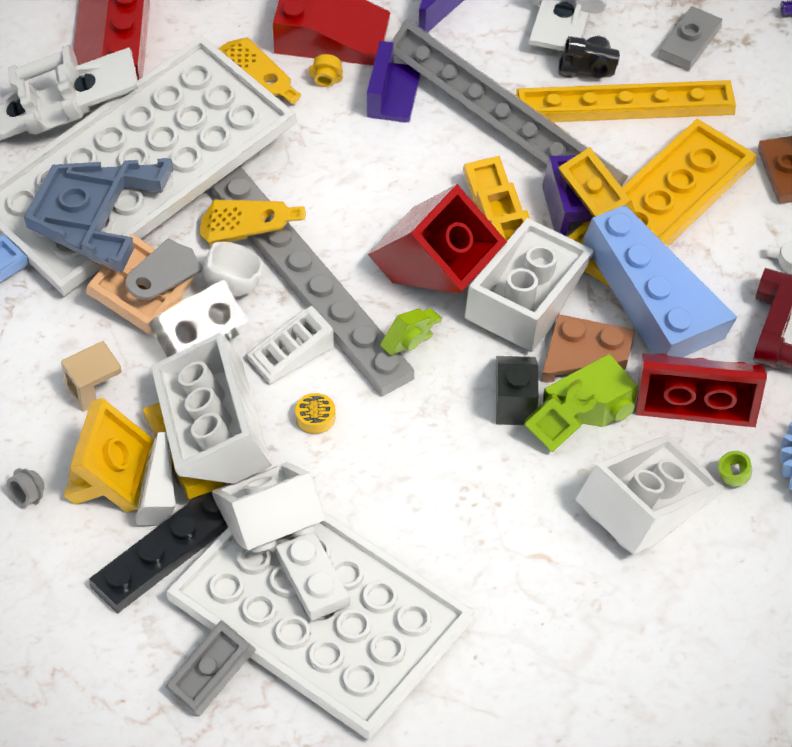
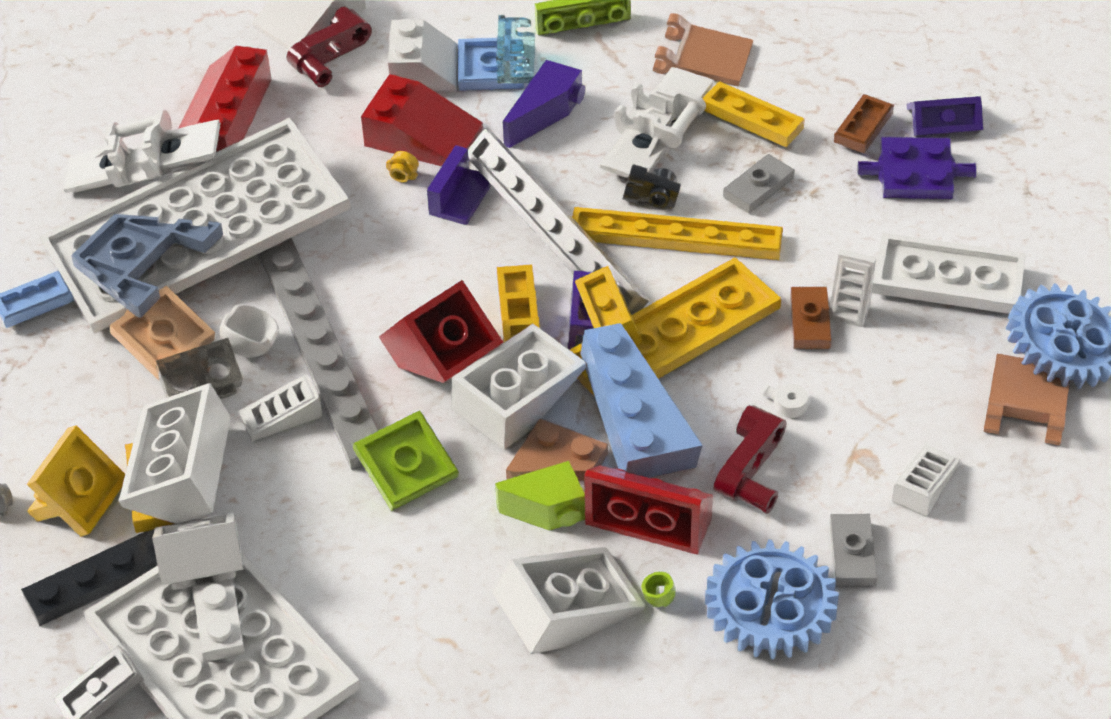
camera: 15 degrees right, 5 degrees down
(87, 370) = (86, 400): tan panel -> none
(157, 489) = (105, 521): white slope -> none
(163, 270) = (183, 322): light grey piece -> none
(243, 218) = (273, 287): yellow piece -> none
(260, 67) = (339, 156): yellow piece -> none
(315, 413) = (282, 474): yellow tile -> none
(410, 330) = (389, 408): lime plate -> none
(439, 378) = (405, 460): none -> lime tile
(516, 389) = (473, 481): pearl dark grey slope -> none
(558, 419) = (501, 513): lime plate -> none

